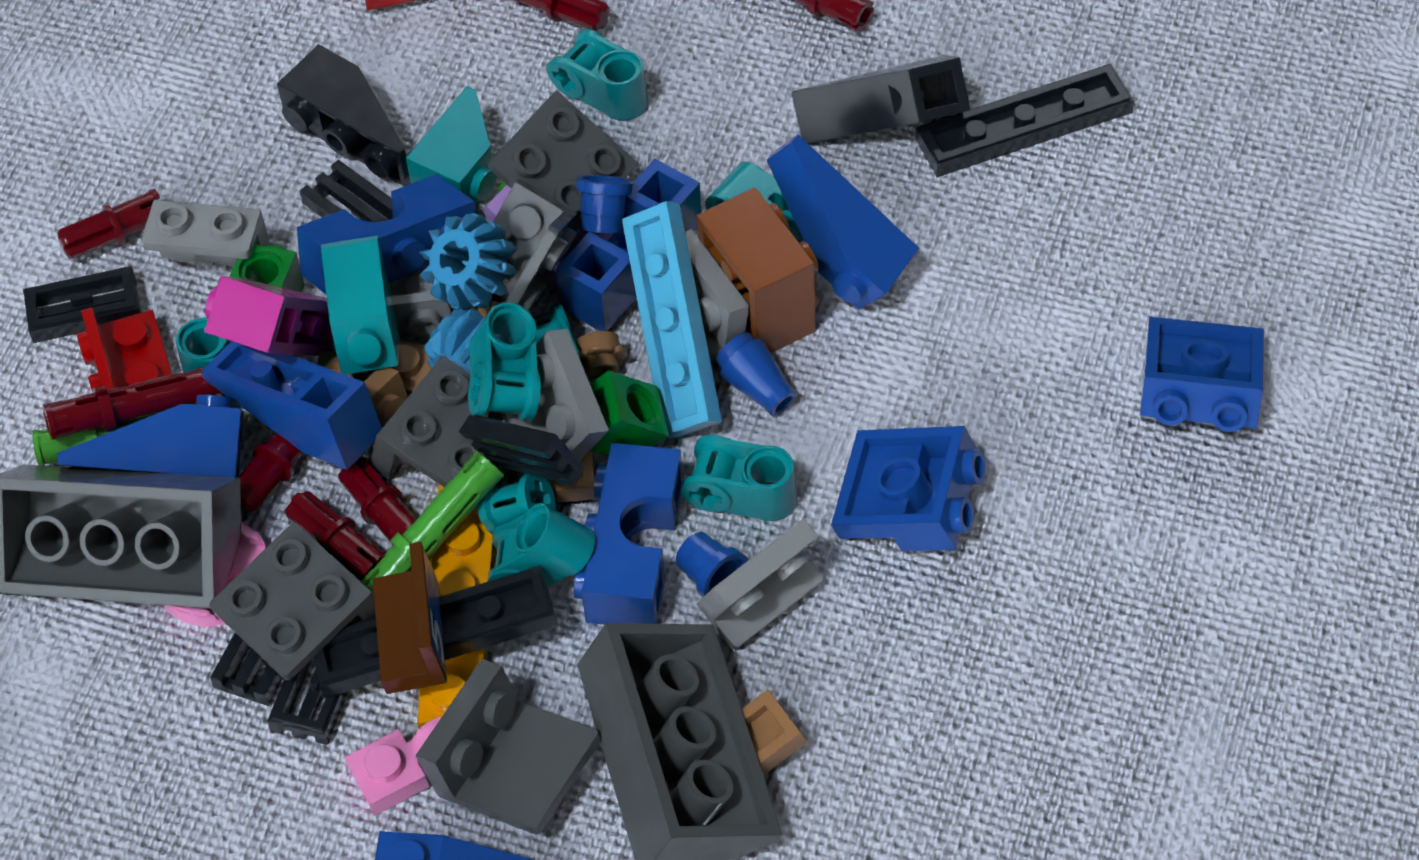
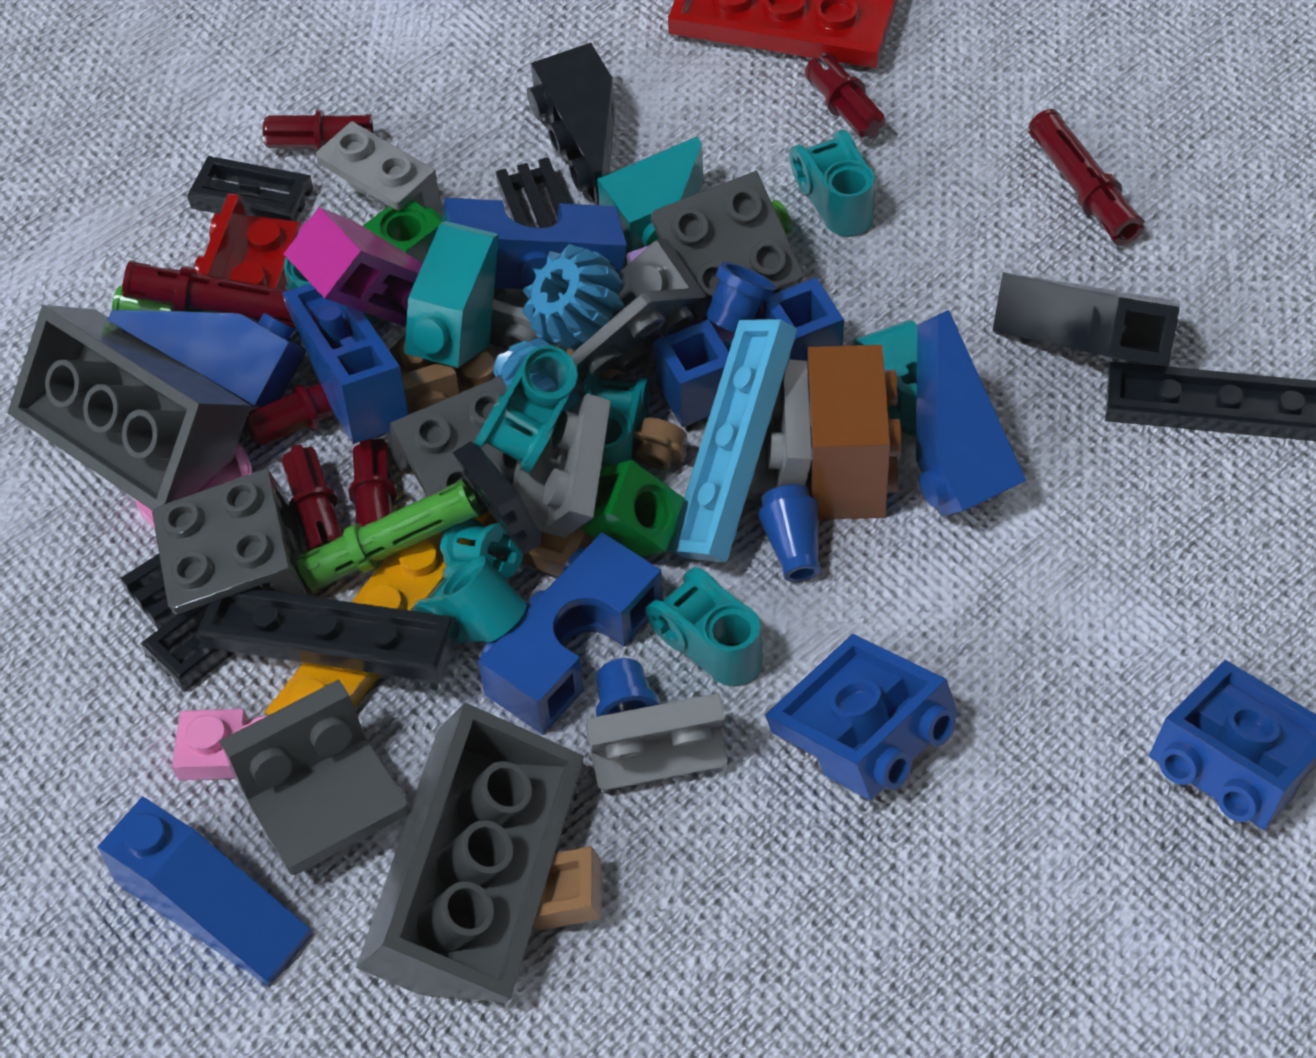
camera: 30 degrees right, 0 degrees up
(410, 626) = (300, 615): reddish brown panel -> none

